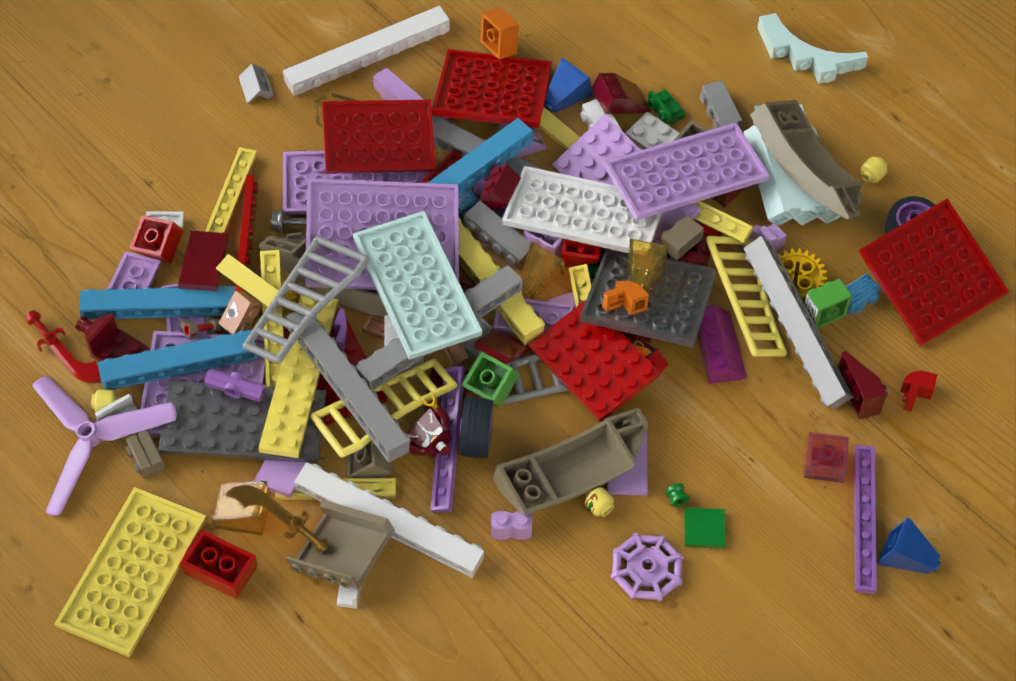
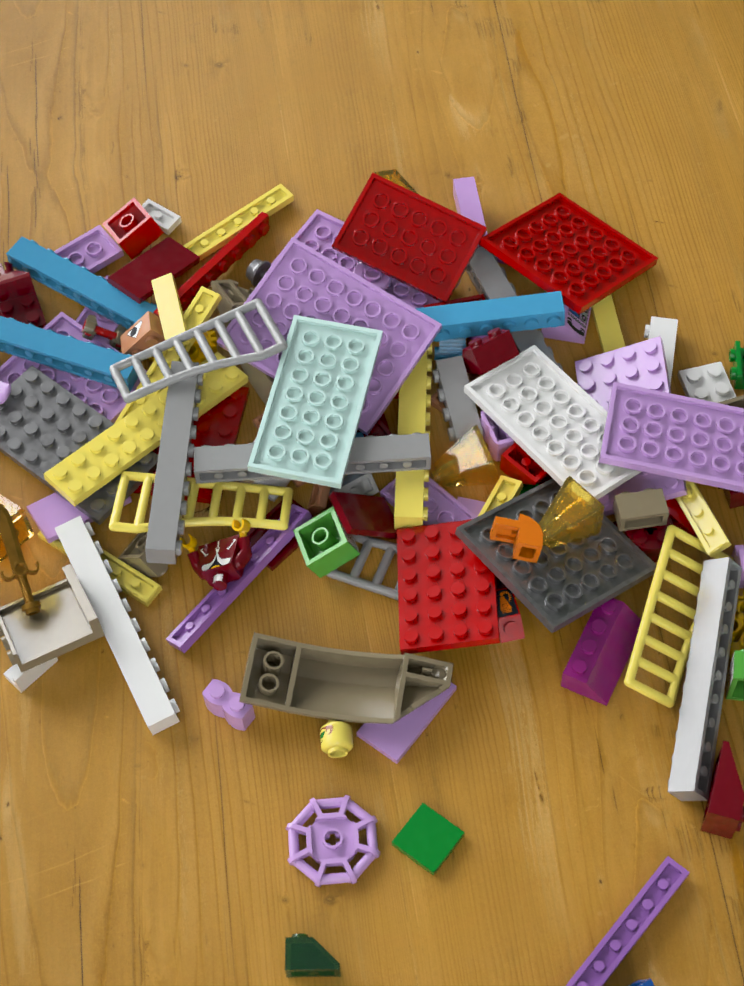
camera: 40 degrees right, 0 degrees up
(235, 385) = (78, 402): medium lavender piece -> none
(255, 83) = (348, 133): panel -> none
(341, 329) = (227, 406): medium lavender slope -> none
(366, 50) = (478, 154): white brick -> none
(476, 427) = (268, 581): black wheel -> none
(499, 33) = (620, 201): orange brick -> none
(567, 87) = (648, 292): blue slope -> none
(618, 95) = (700, 327): dark red slope -> none
(677, 495) = (425, 784): green wheel -> none
(692, 644) = (308, 958): none -> clear green slope
(826, 457) = (620, 848): clear pink brick -> none

